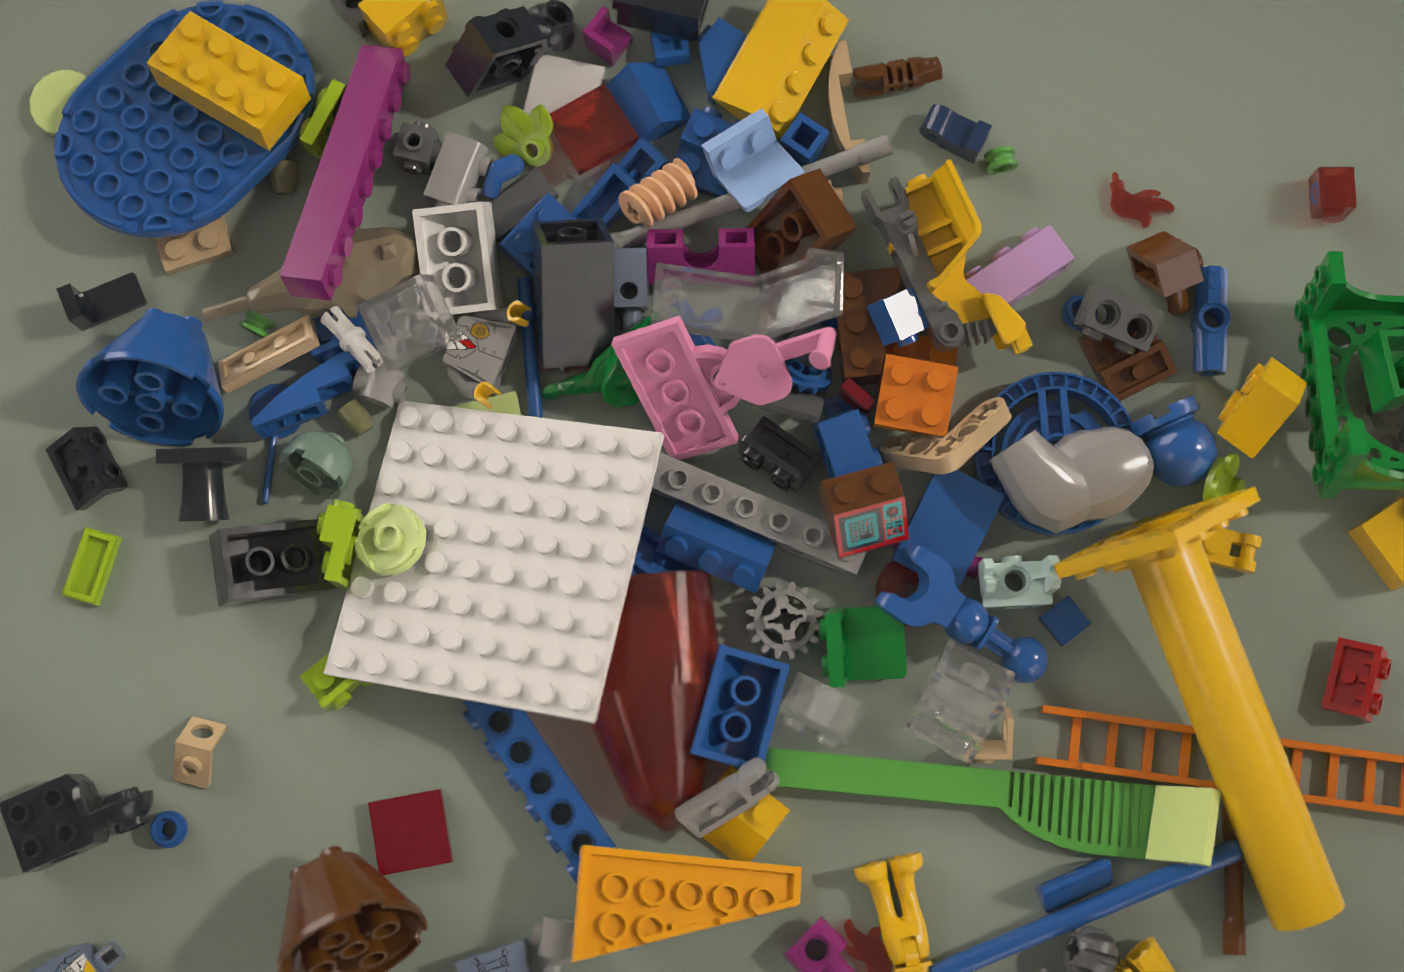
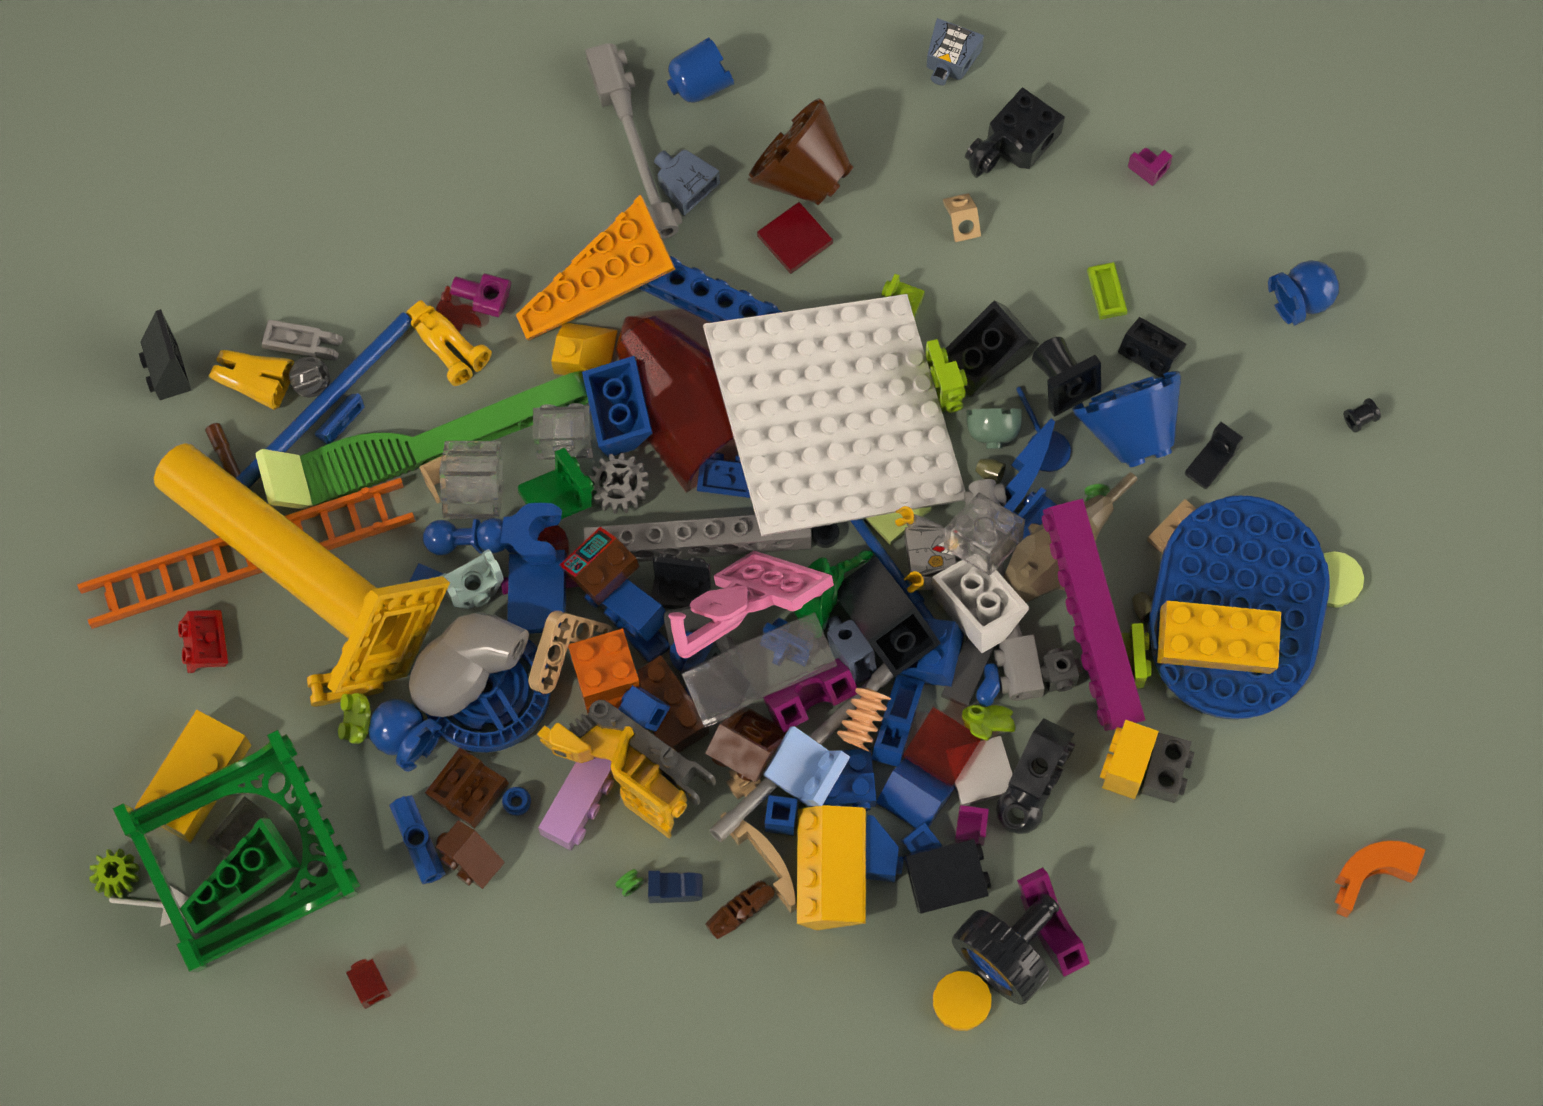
camera: 150 degrees right, 10 degrees down
(157, 829) = (951, 156): blue plate -> none
(268, 354) = (1075, 474): tan tile -> none
(352, 339) = (1019, 506): white pin -> none
(390, 539) = (912, 393): yellowish green tile -> none
(716, 546) = (690, 500): blue brick -> none
(727, 798) = (595, 345): light grey hinge -> none
(856, 397) = (645, 649): dark red tile -> none
(1120, 312) = (486, 804): dark grey brick -> none
(1137, 205) = (510, 905): clear red piece -> none
(1261, 408) = (353, 780): yellow brick -> none

